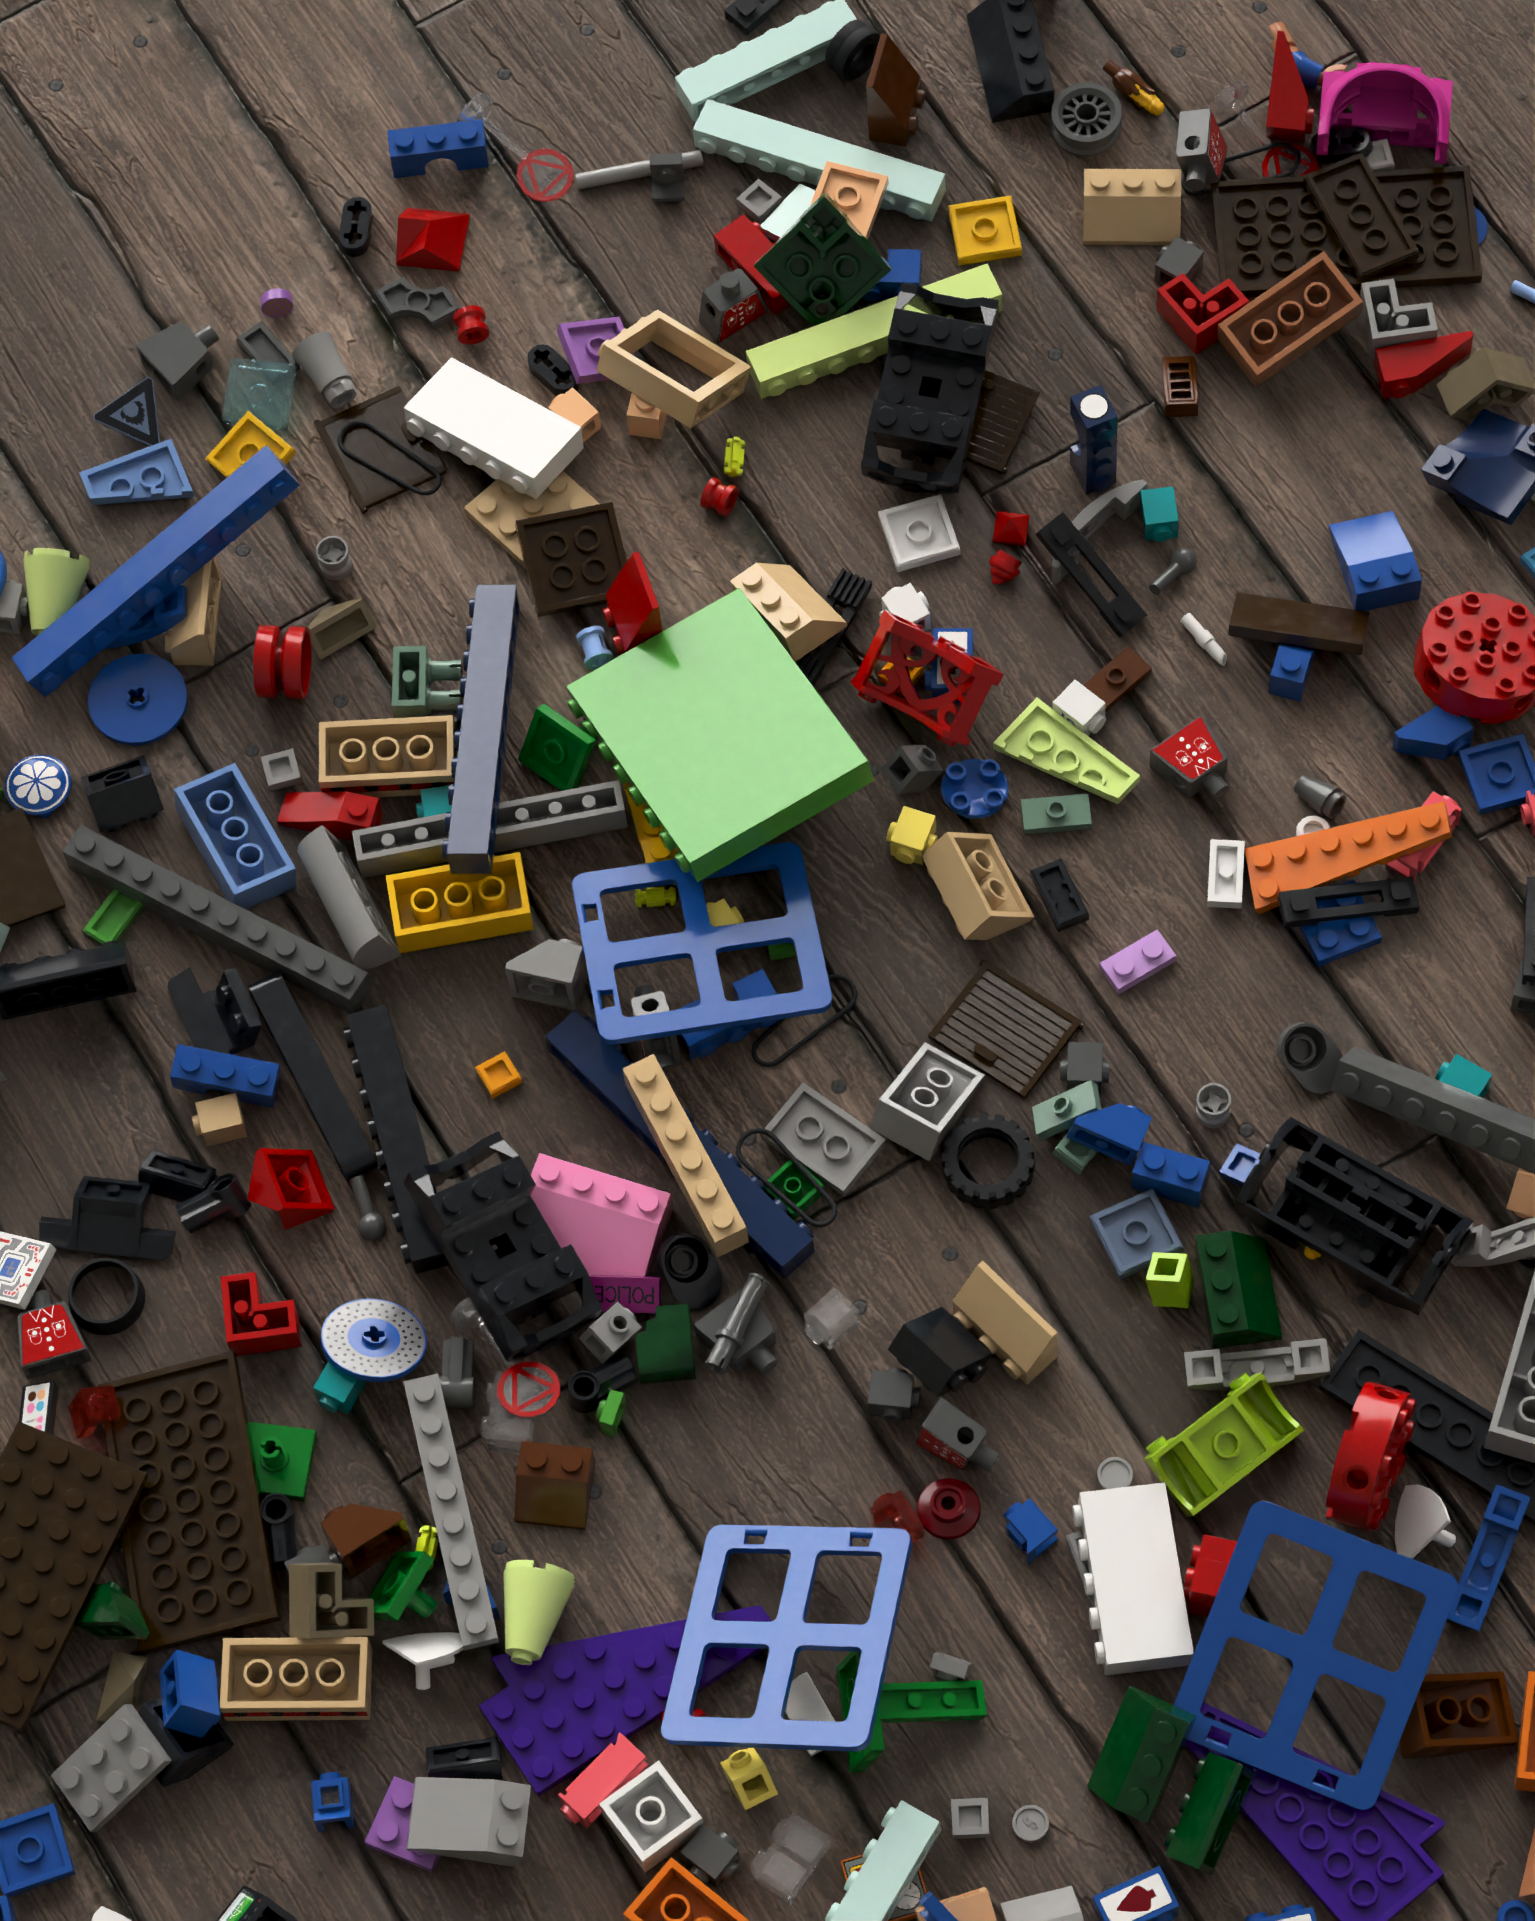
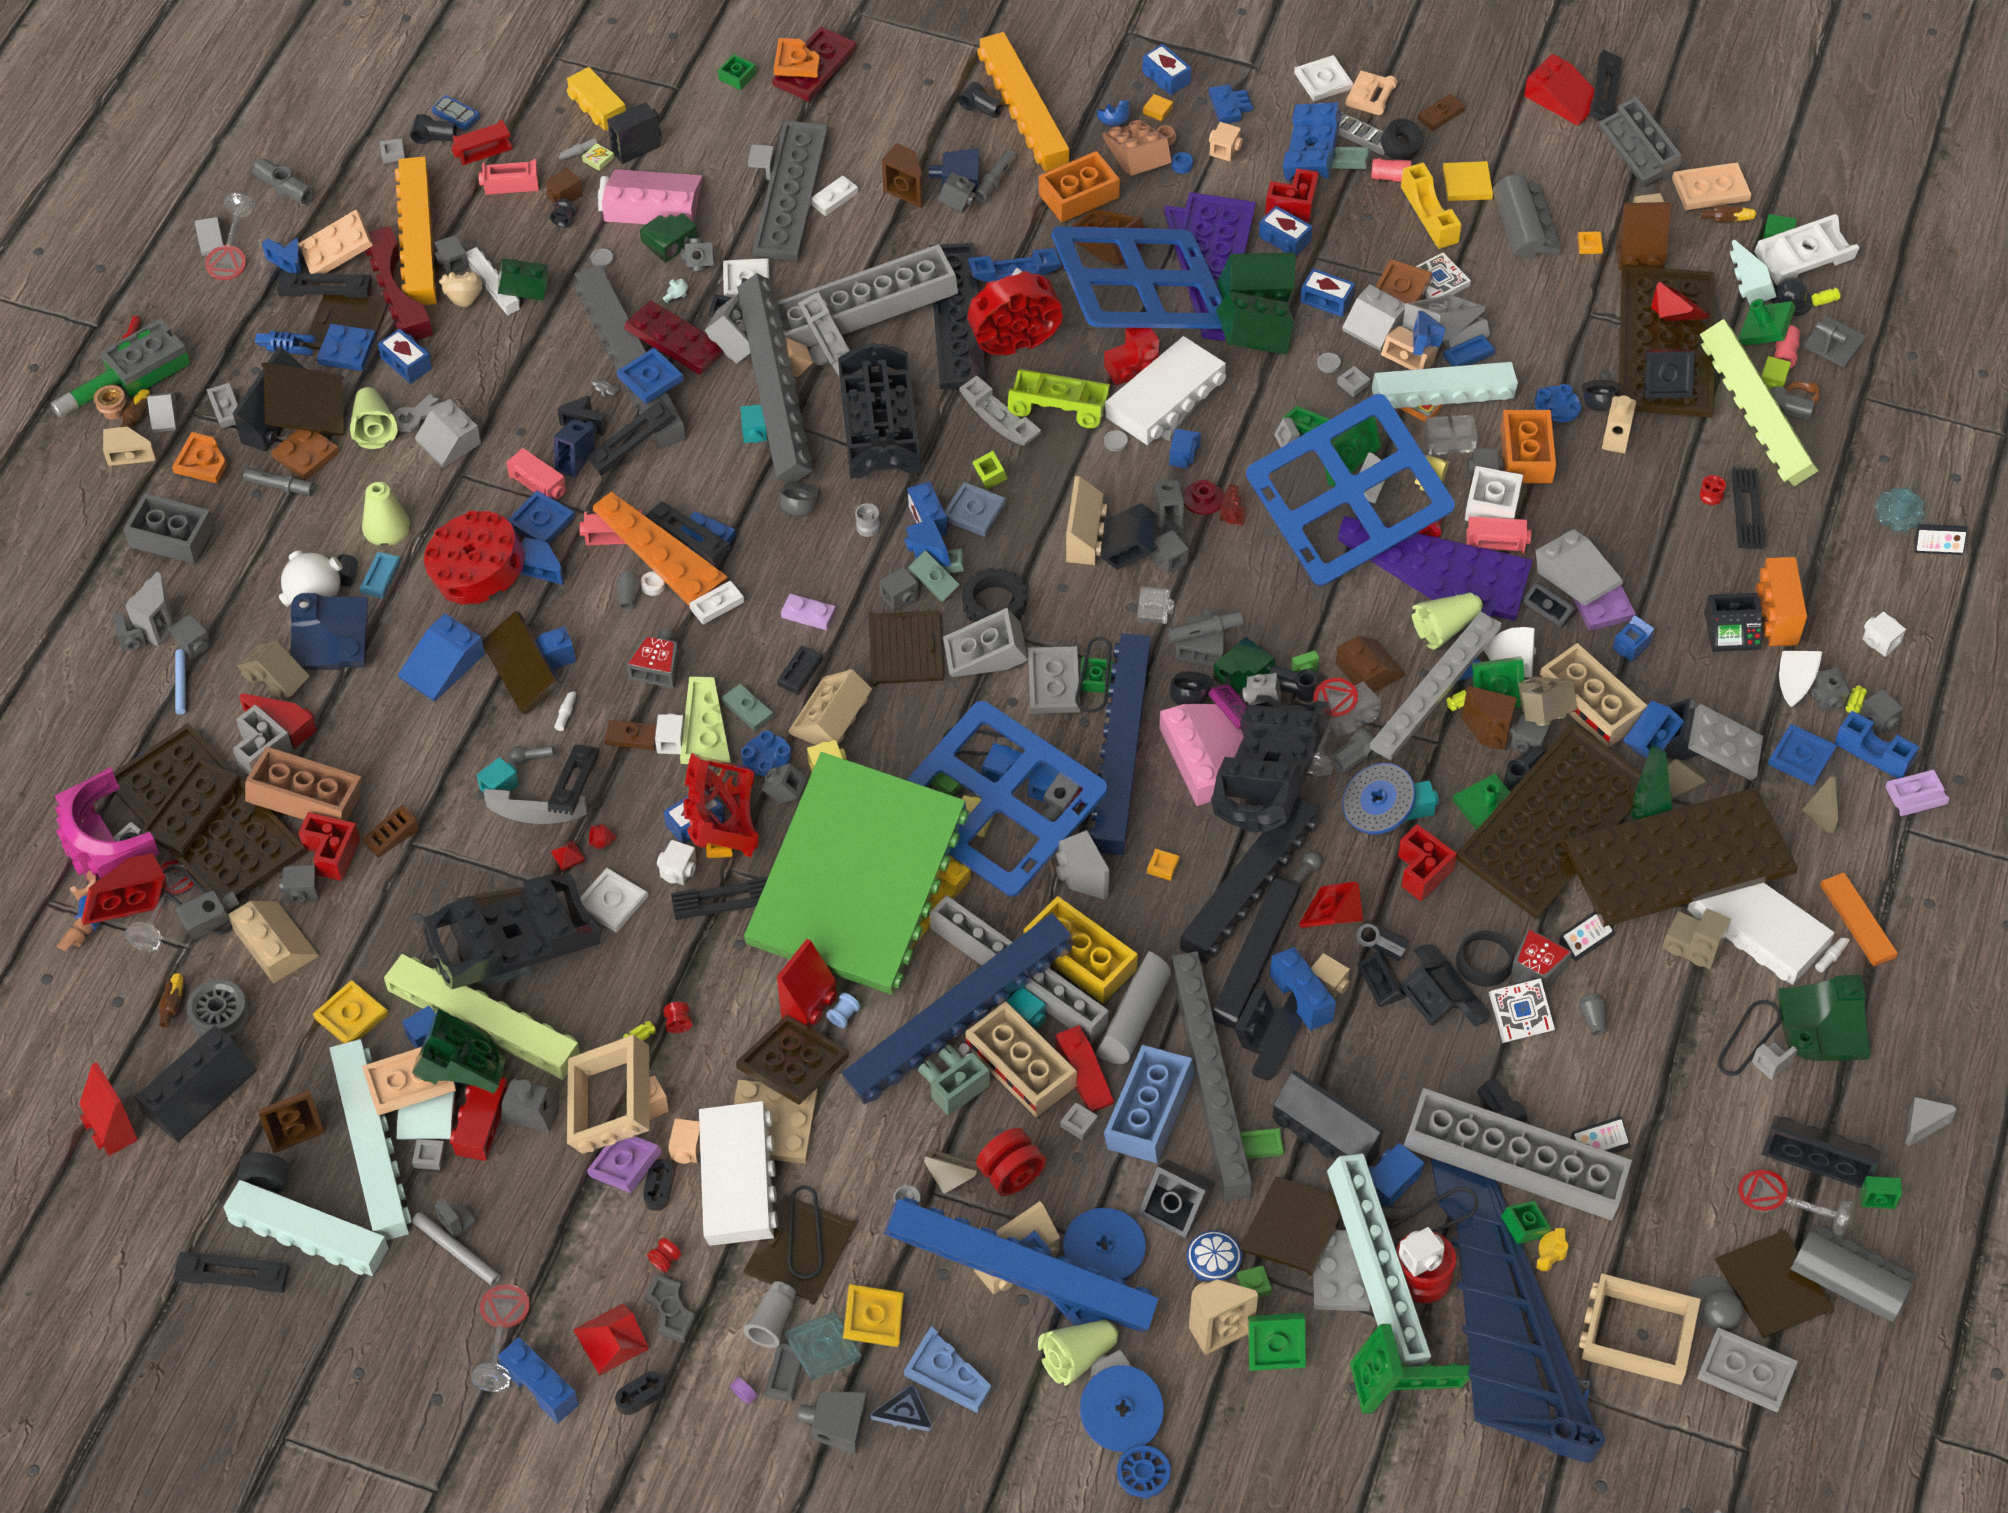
camera: 135 degrees left, 10 degrees down
(92, 1407) = (1557, 902): clear red bracket -> none
(556, 749) = (933, 968): green tile -> none
(685, 1155) = (1134, 712): tan brick -> none
(789, 607) = (727, 919): tan slope -> none
(1096, 454) = (490, 827): dark blue arch -> none
(1237, 1289) = (971, 441): dark green slope -> none
(1239, 1164) = (891, 486): plate -> none

